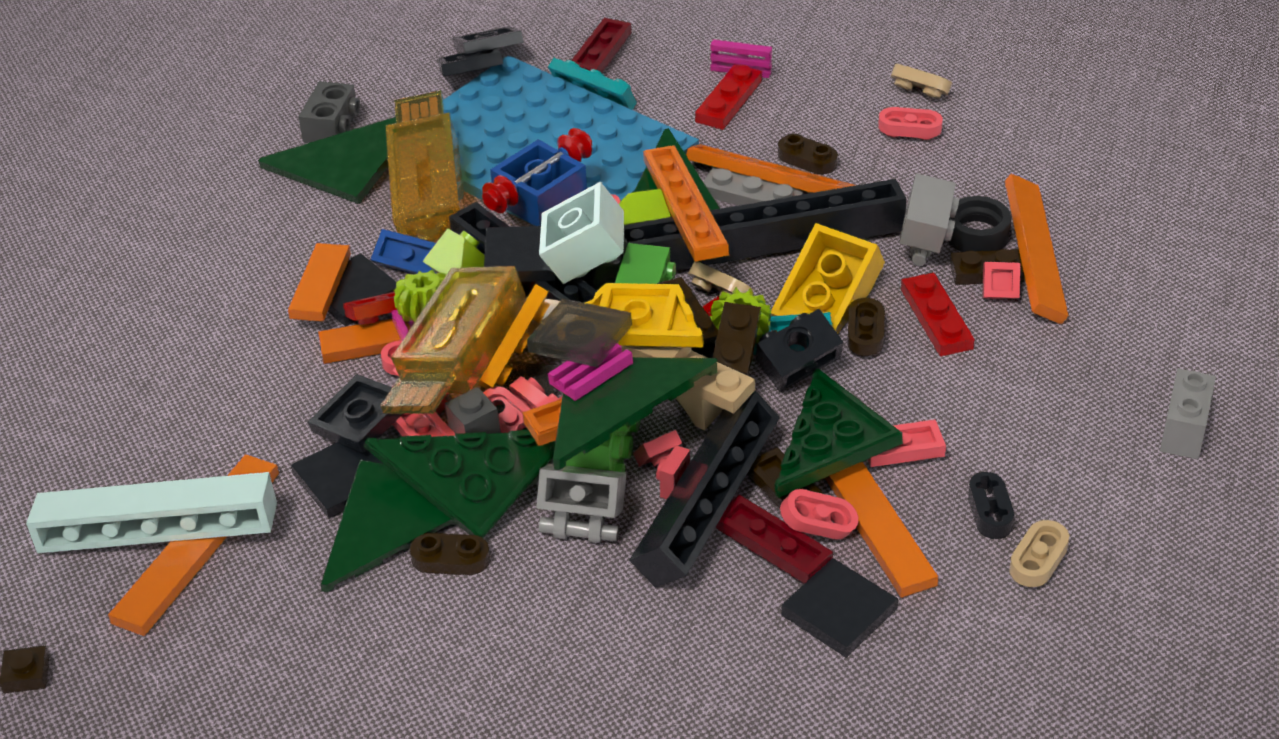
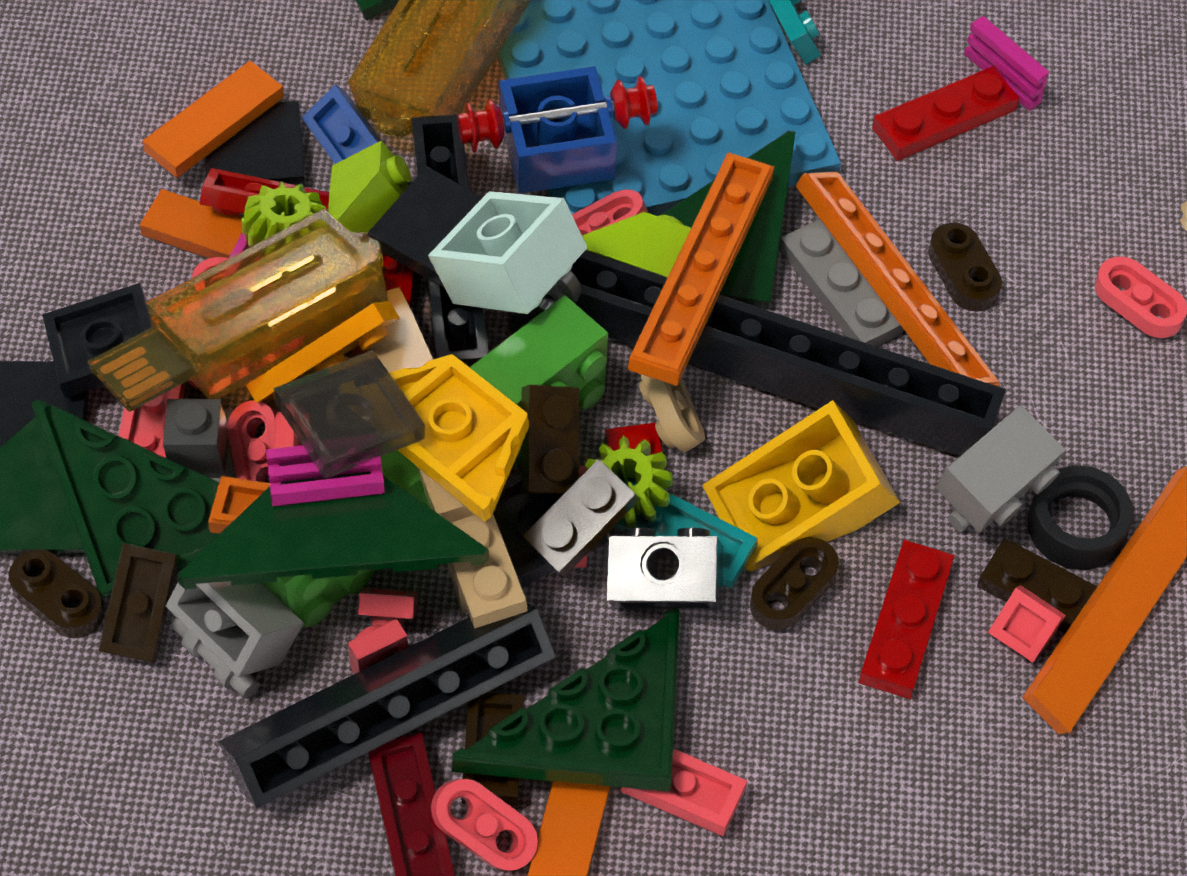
camera: 30 degrees right, 15 degrees up
(513, 522) = (139, 603): none -> dark brown plate

